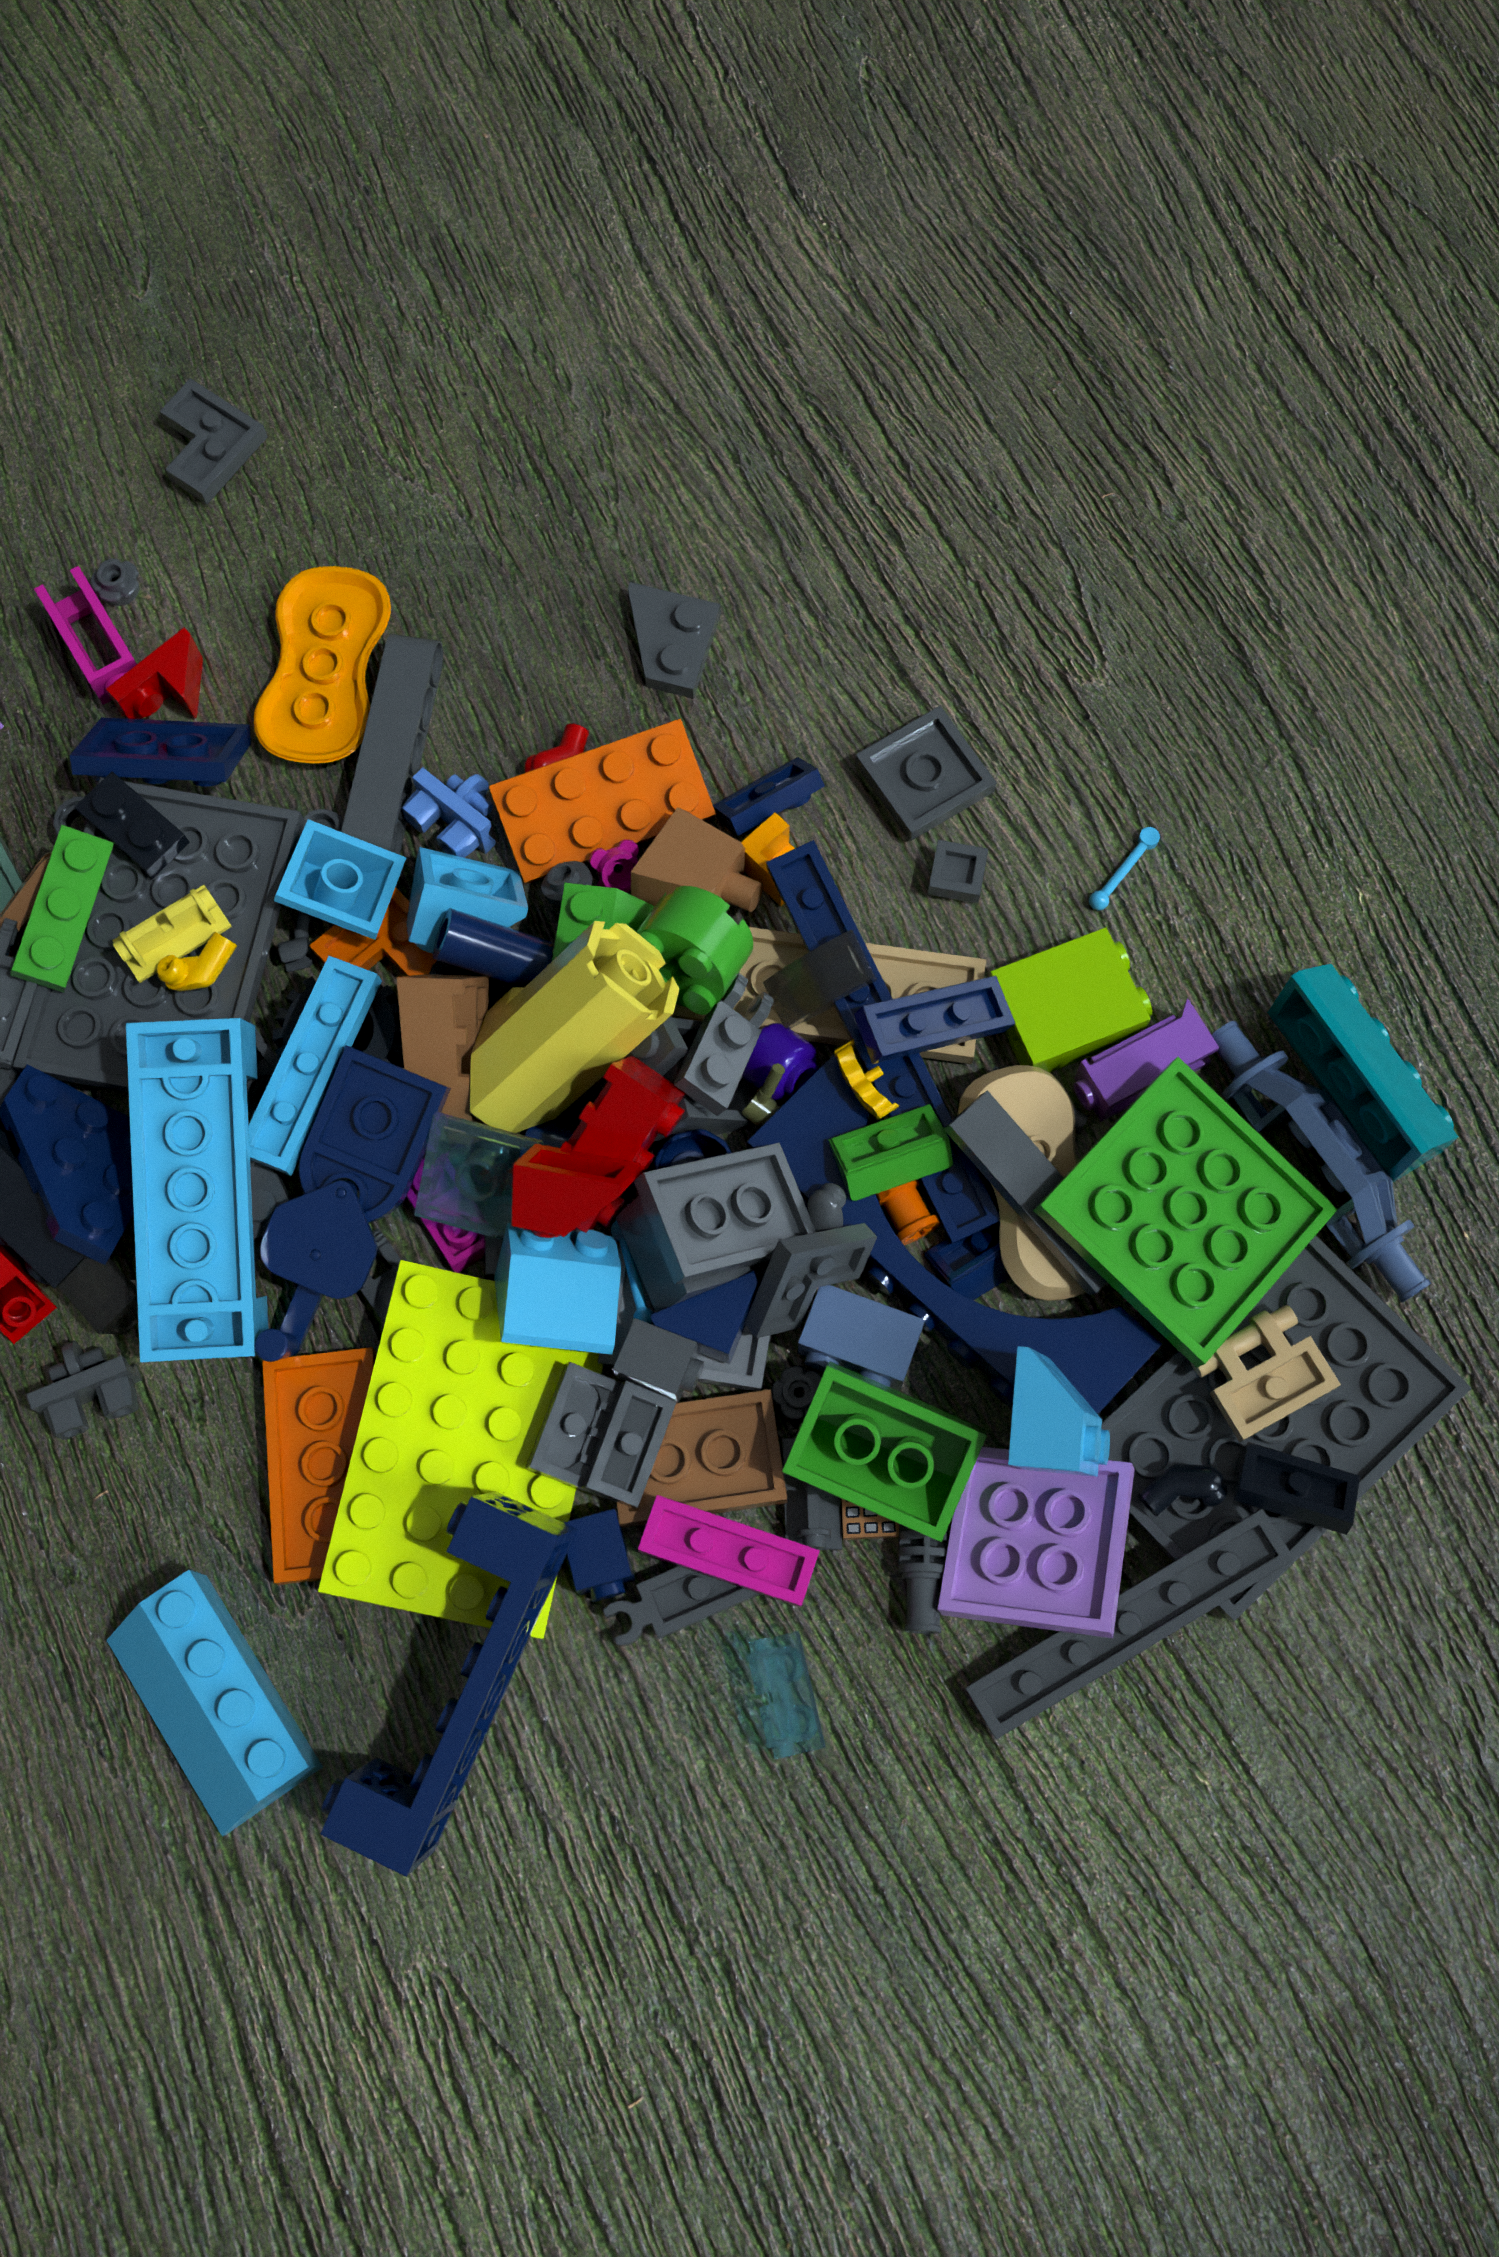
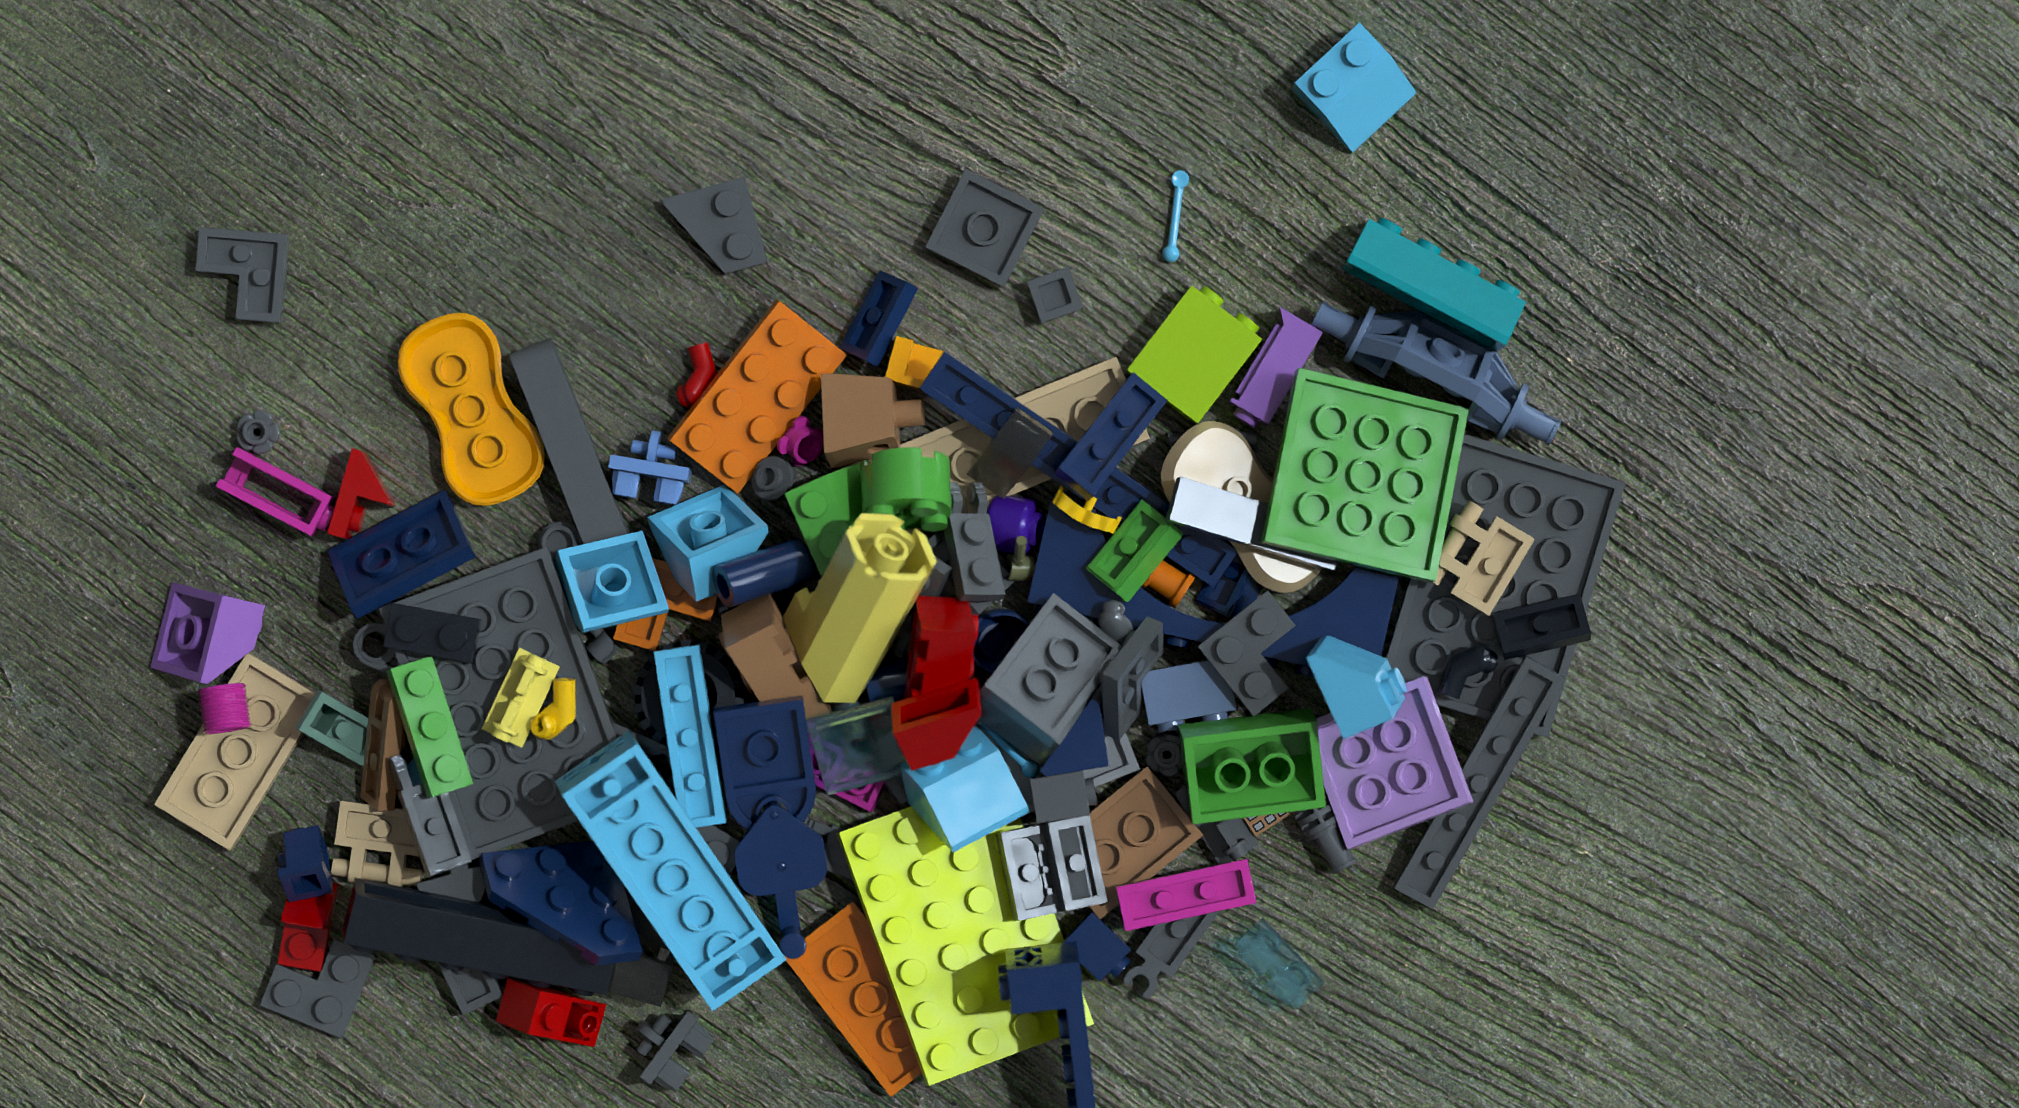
camera: 30 degrees left, 15 degrees up
(940, 1318) = (1238, 648): none -> dark grey plate
(1380, 839) = (1354, 88): none -> medium azure slope

